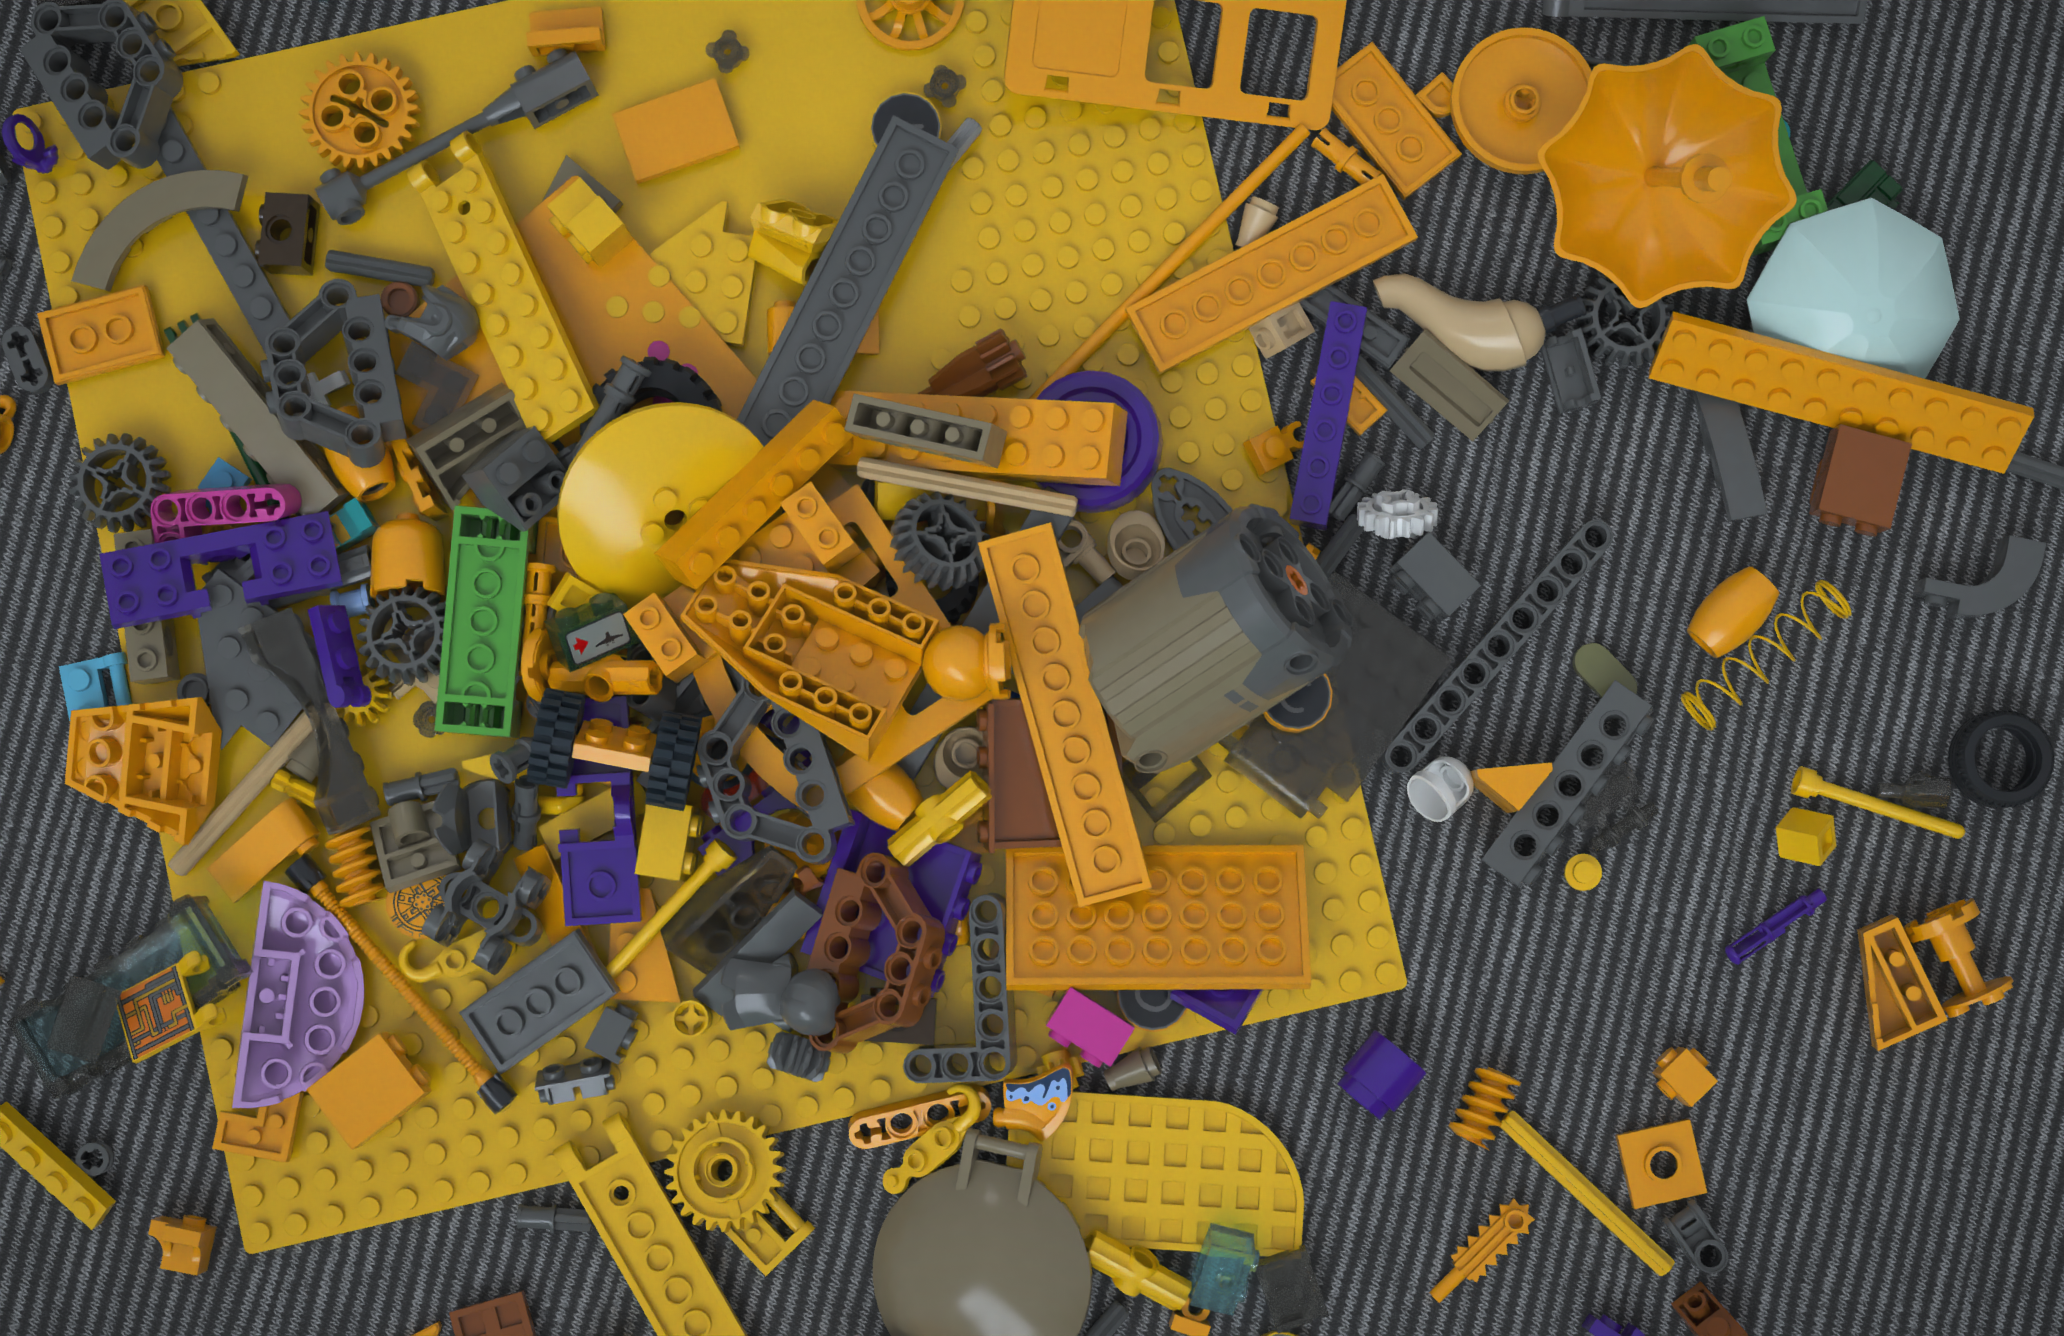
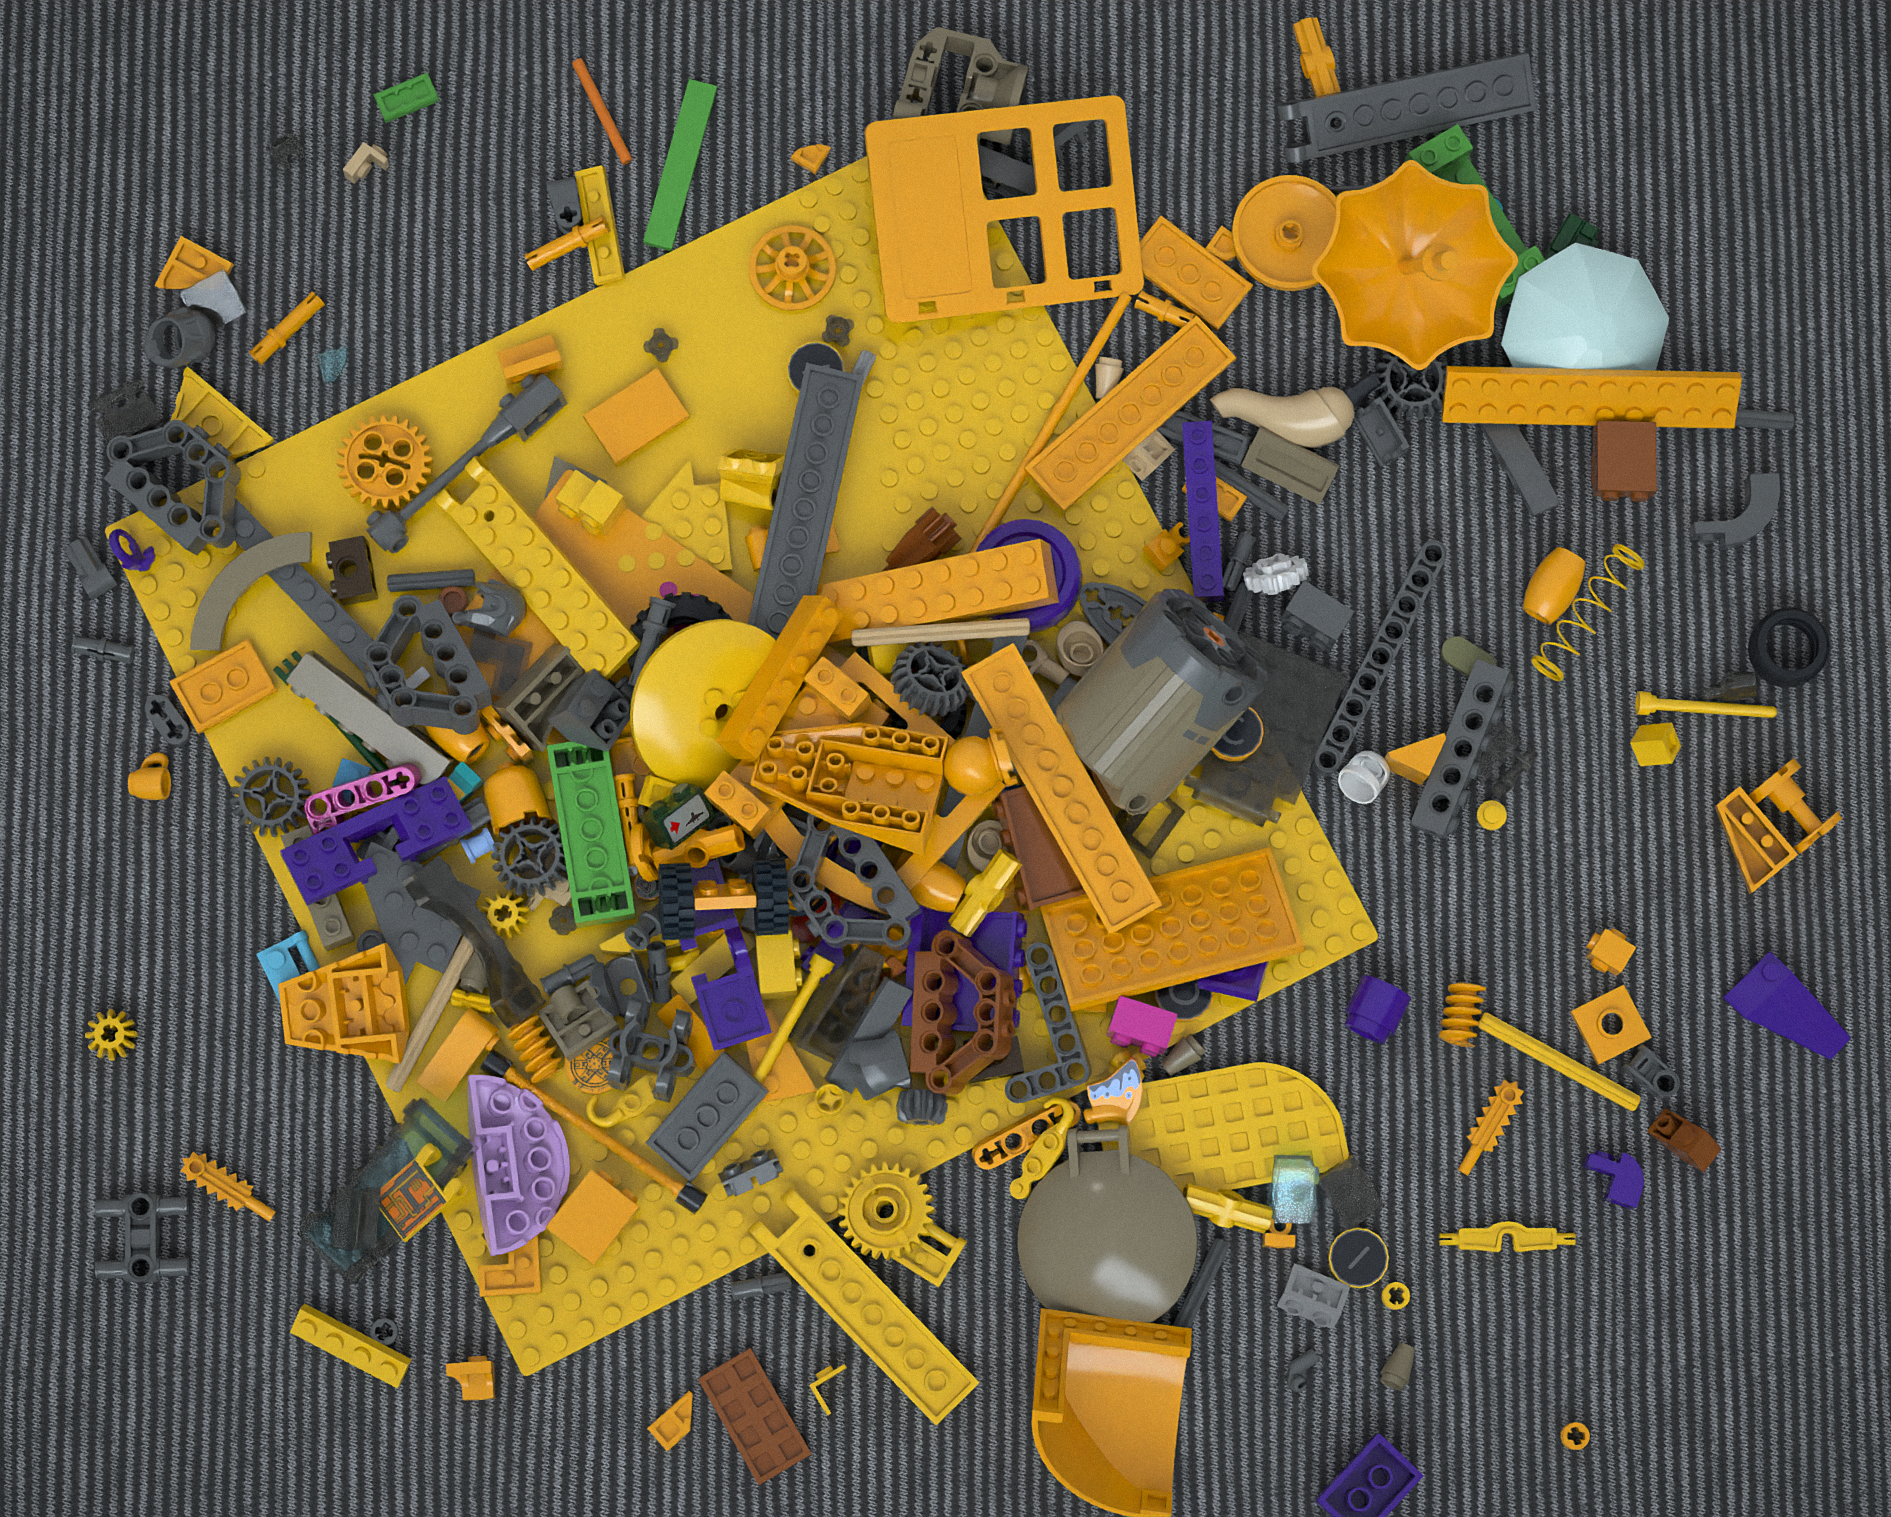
camera: 20 degrees left, 5 degrees down
(338, 657) = (484, 886): dark purple plate -> none
(614, 1033) = (771, 1126): dark grey brick -> none
(810, 1002) = (923, 1057): dark grey hair -> none
(926, 430) = (900, 596): dark tan brick -> none
(1774, 926) = (1650, 819): dark purple piece -> none
(1877, 1192) = (1781, 1003): none -> dark purple wedge

